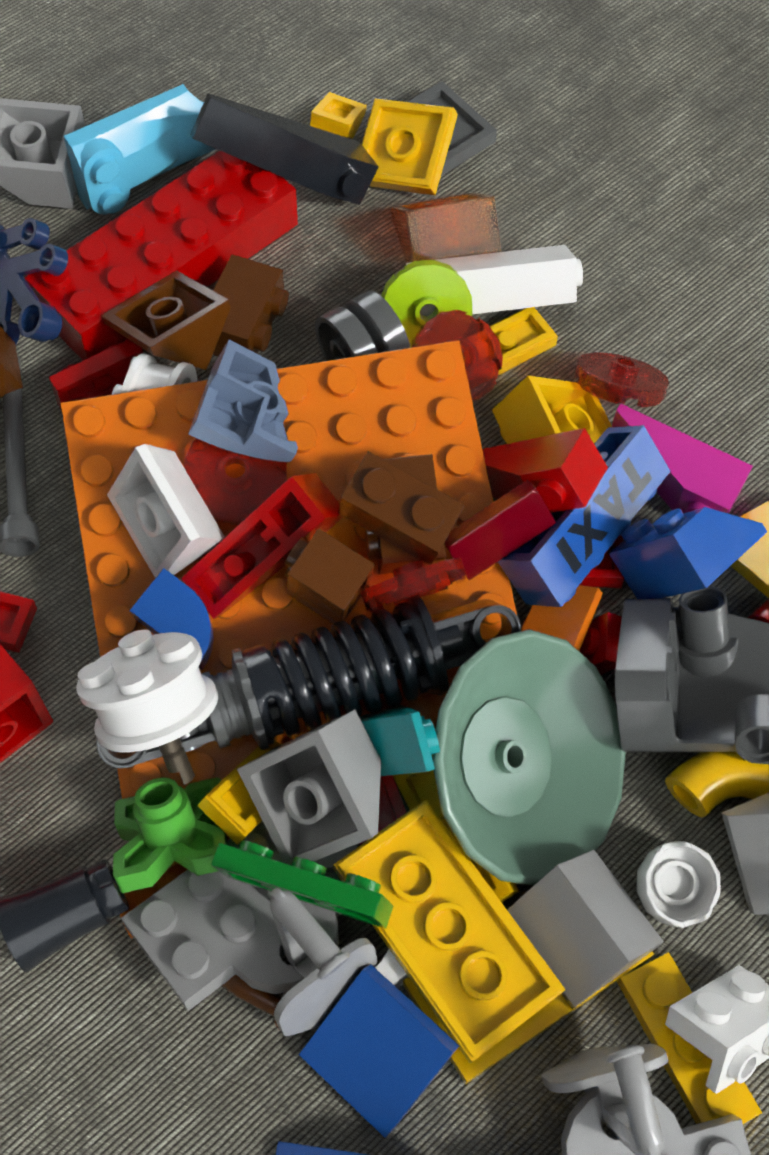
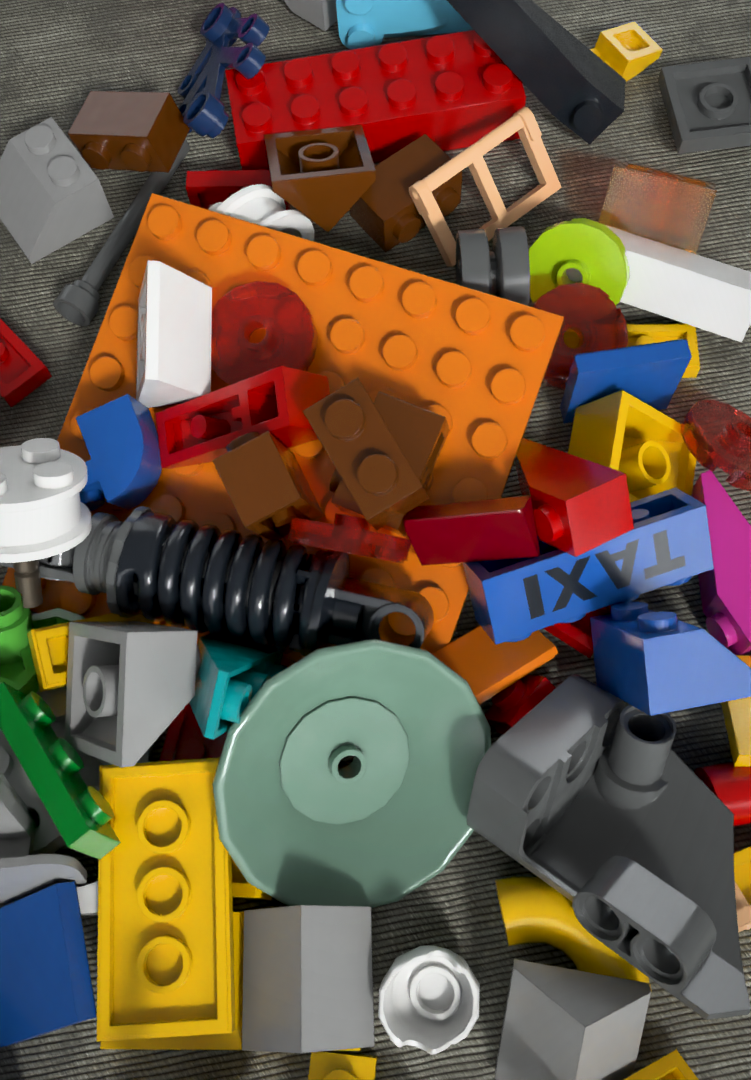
camera: 40 degrees right, 5 degrees up
(244, 407) = (296, 275): sand blue slope -> none
(287, 257) = (502, 217): none -> light nougat window
(408, 144) = (673, 104): yellow tile -> none
(528, 355) = (644, 371): none -> blue tile

